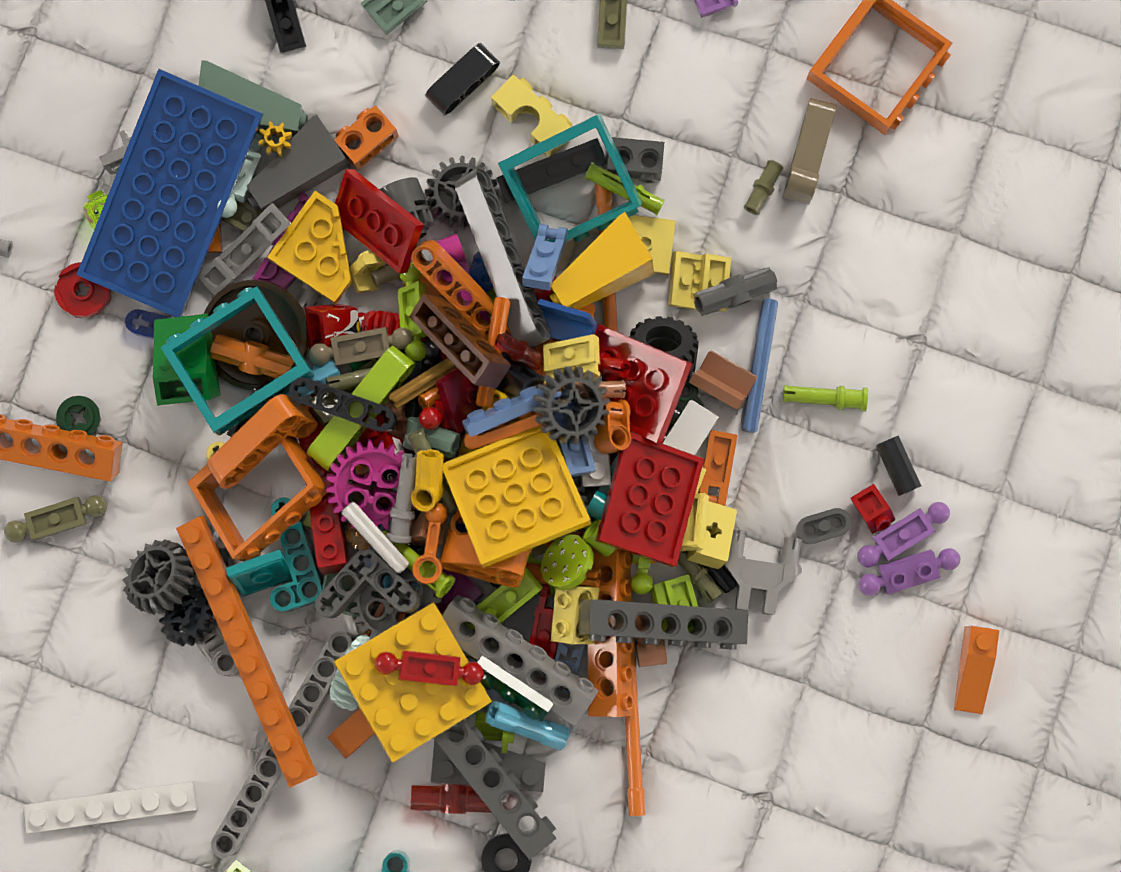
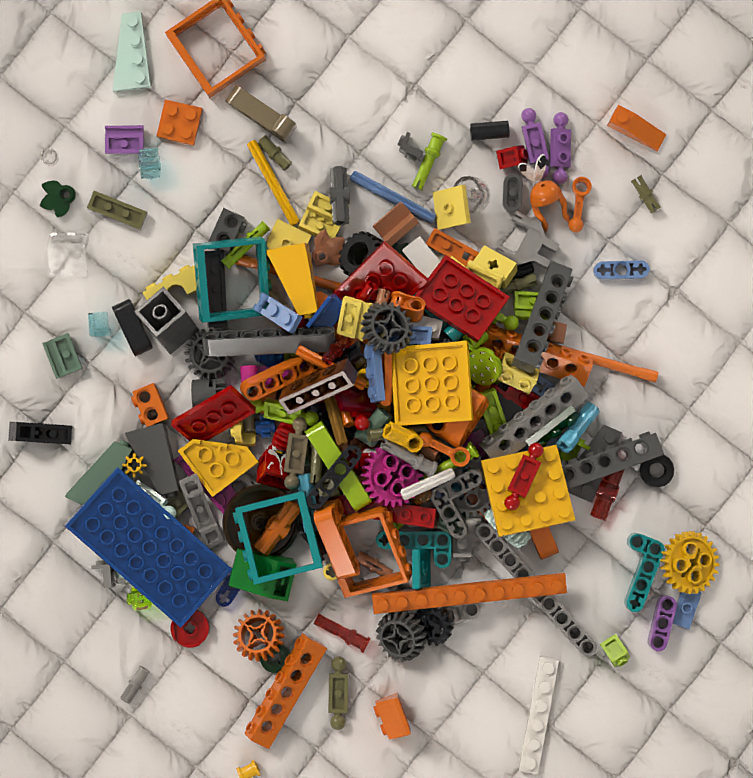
camera: 70 degrees left, 5 degrees up
(44, 604) = (392, 716): none -> orange slope
(80, 373) = (254, 641): none -> orange gear
(137, 509) = (350, 636): none -> clear red pin
(246, 507) = (362, 558): none -> nougat pin
(308, 623) = (462, 548): none -> light grey bracket
(386, 297) = (265, 427): none -> blue gear
(450, 33) = (99, 324): none -> clear light blue panel
(485, 117) = (166, 320): none -> dark grey slope
(661, 299) = (330, 248): none -> nougat plate
(690, 27) = (149, 163): none -> clear light blue brick
(722, 199) = (273, 182): none -> yellow axle
(759, 49) = (179, 122): none -> orange plate
(773, 448) = (451, 207): none -> light yellow plate
(784, 732) = (635, 274): none -> medium blue beam
(800, 469) = (477, 193): none -> clear cylinder
(811, 629) = (576, 223): none -> orange piece
(829, 369) = (411, 153): none -> dark grey bracket
(840, 566) = (543, 192): none -> orange hair
(888, 713) = (645, 194): none -> olive pin

